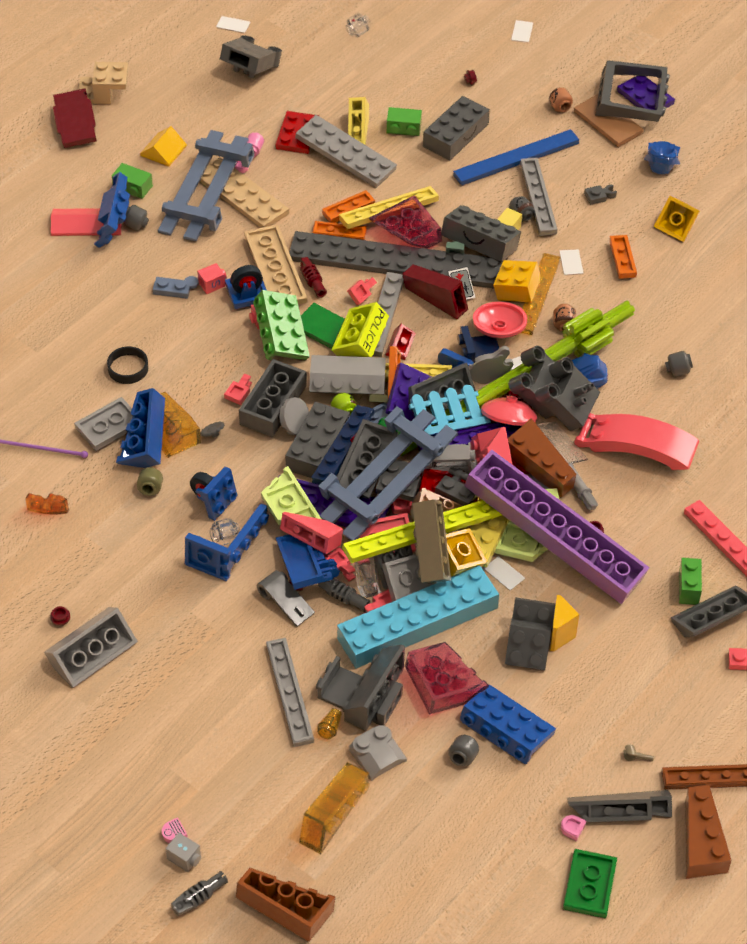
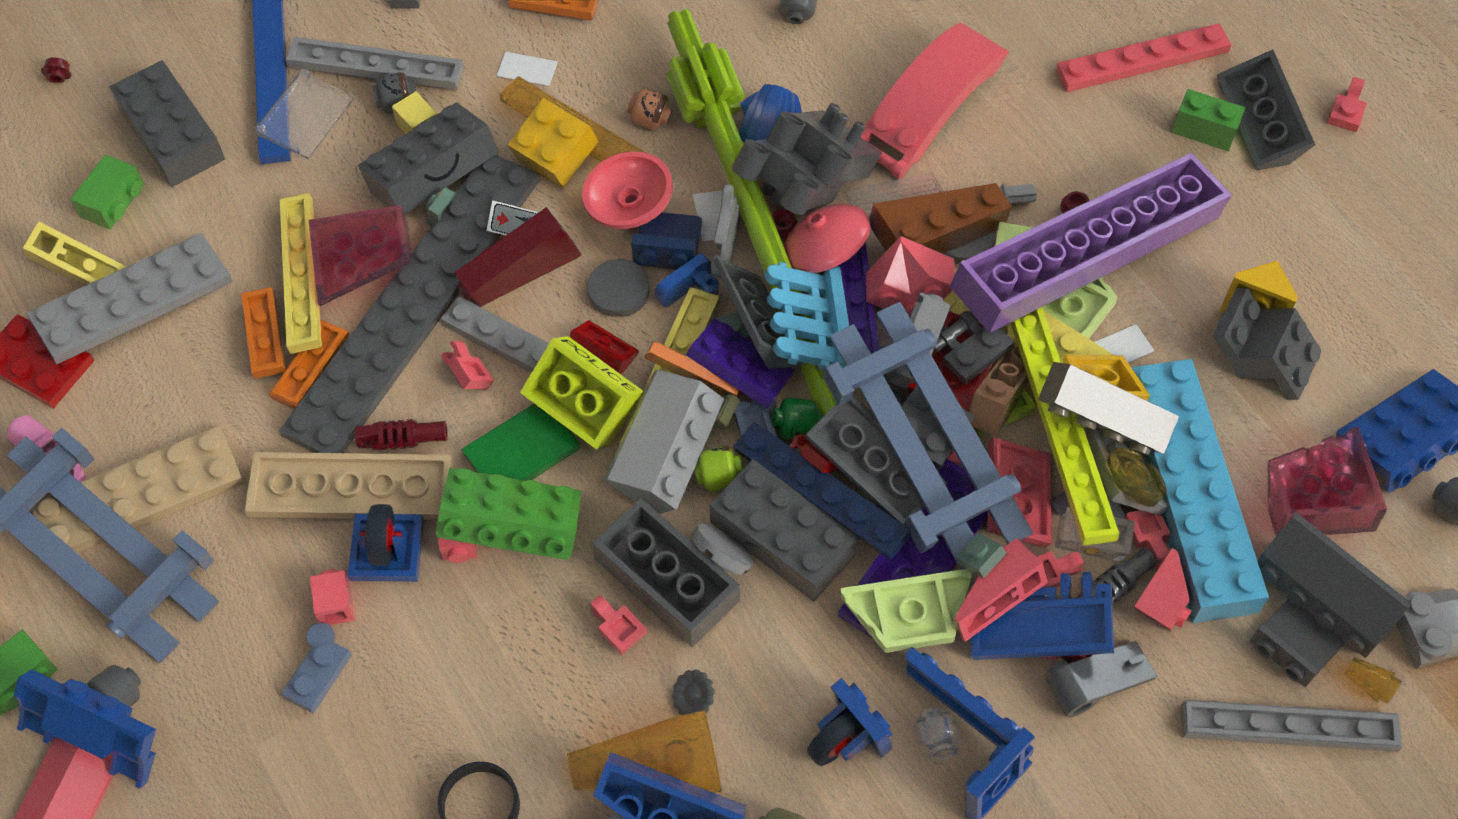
camera: 70 degrees left, 10 degrees up
(326, 514) = (981, 555): none -> sand green plate
(343, 609) = (1166, 594): none -> coral slope
(402, 575) = (1134, 478): none -> clear yellow tile
(439, 337) = (618, 287): none -> dark grey tile
(490, 179) = (303, 114): none -> clear piece

